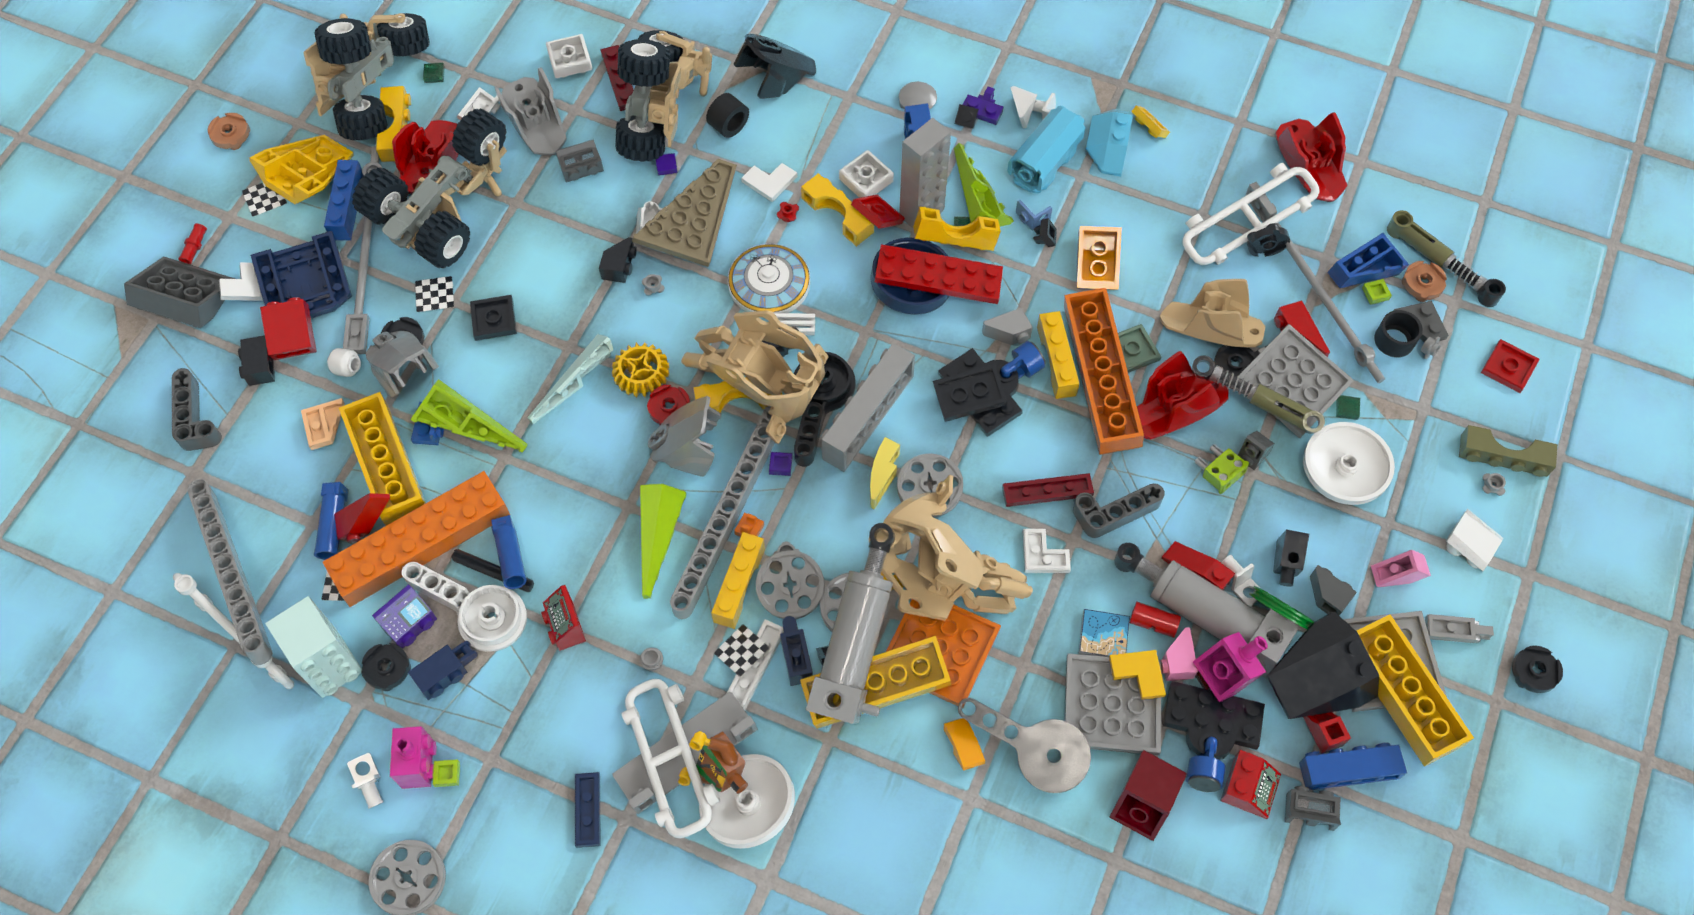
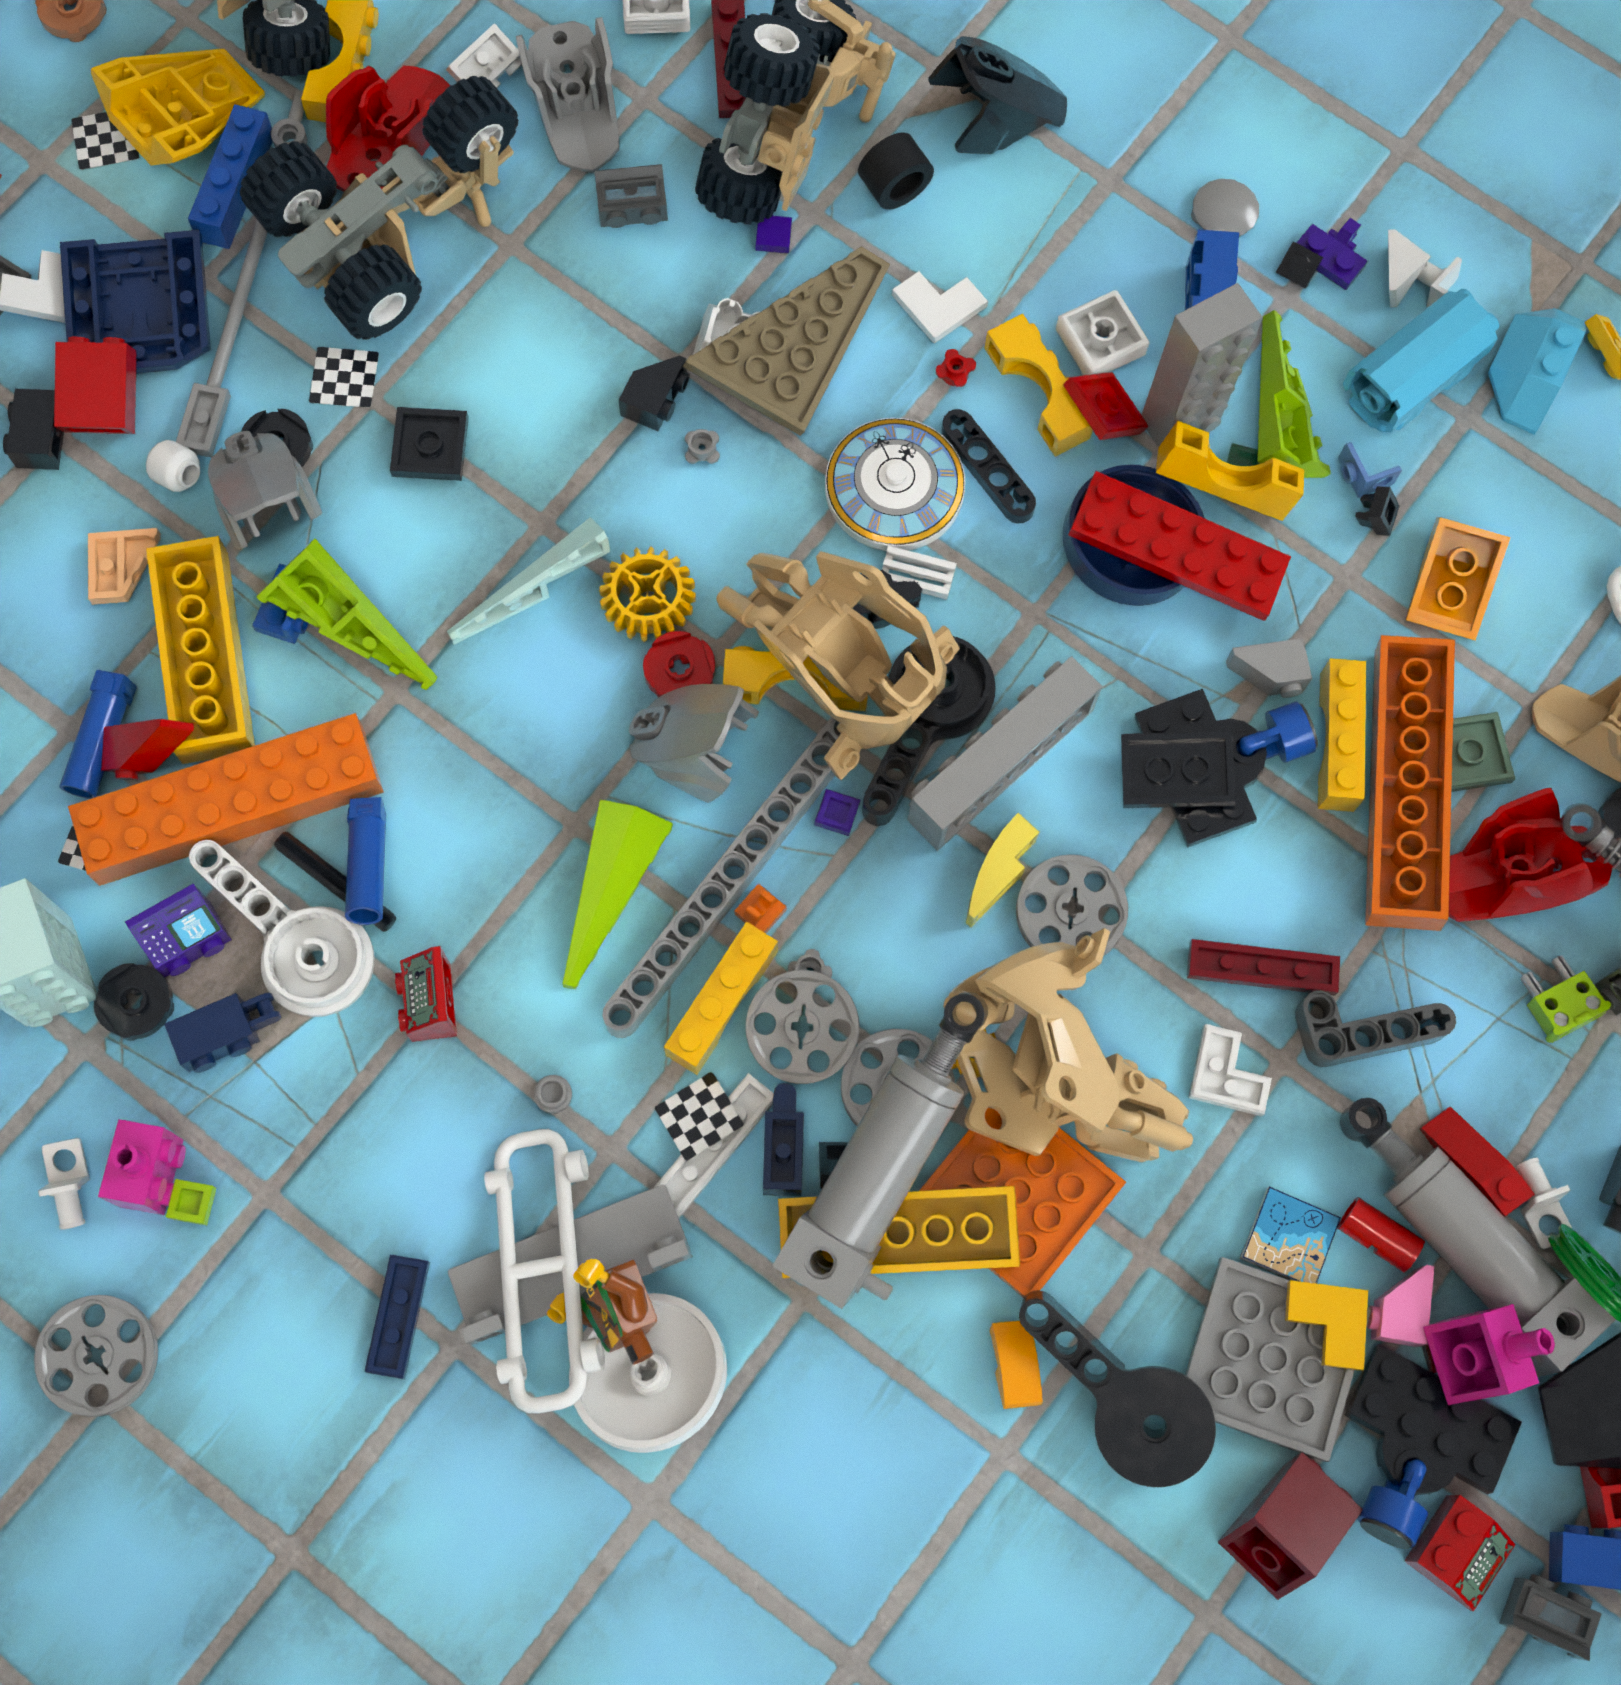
camera: 10 degrees right, 10 degrees up
(820, 258) = (992, 463): none -> black beam

